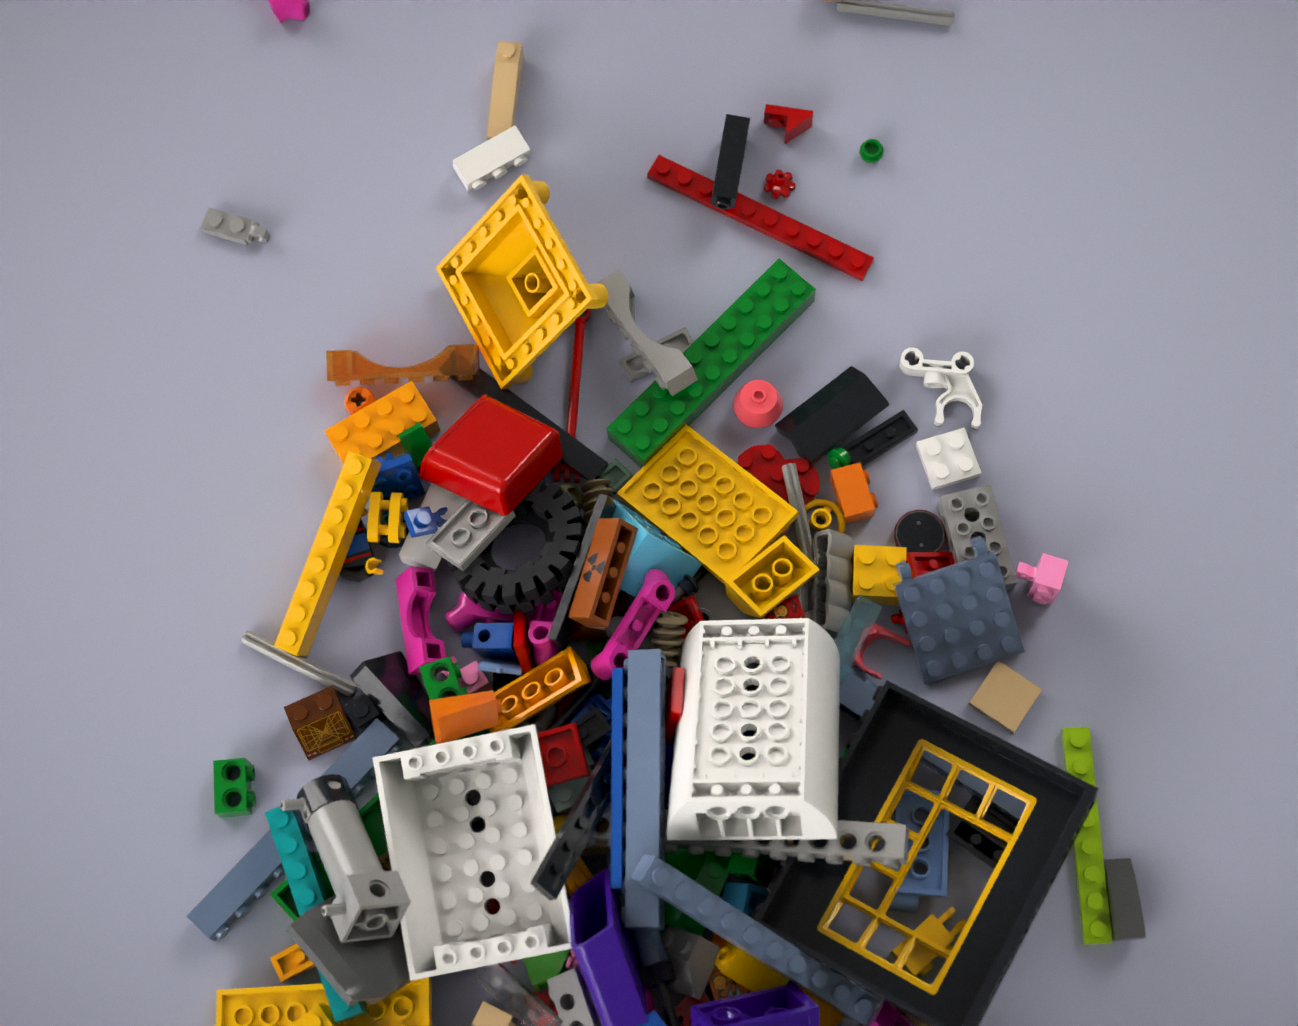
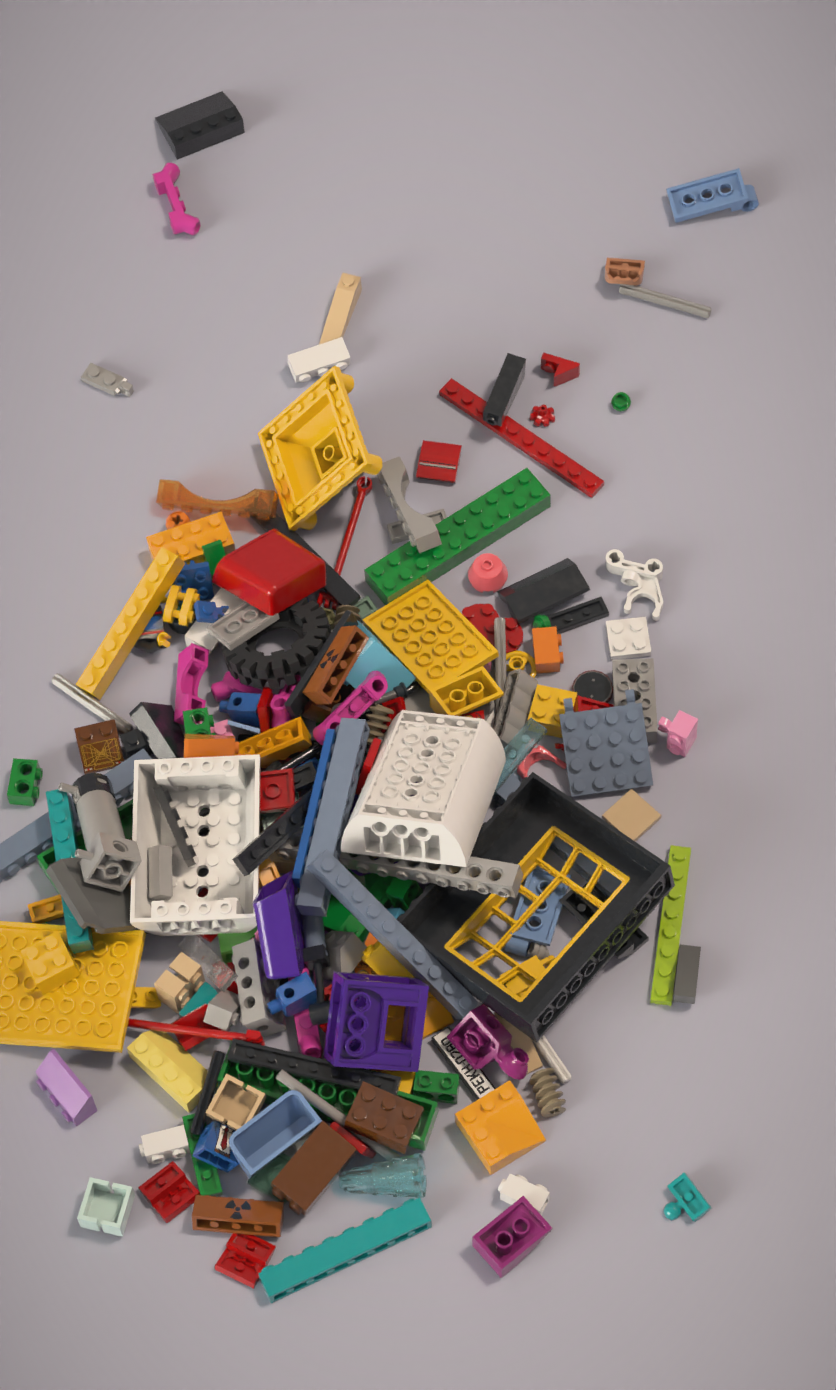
camera: 10 degrees right, 10 degrees down
(434, 895) = (160, 872): none -> light grey piece
(448, 838) = (179, 832): none -> black plate
(666, 265) = (439, 461): none -> red slope
(930, 905) = (539, 950): none -> light grey plate

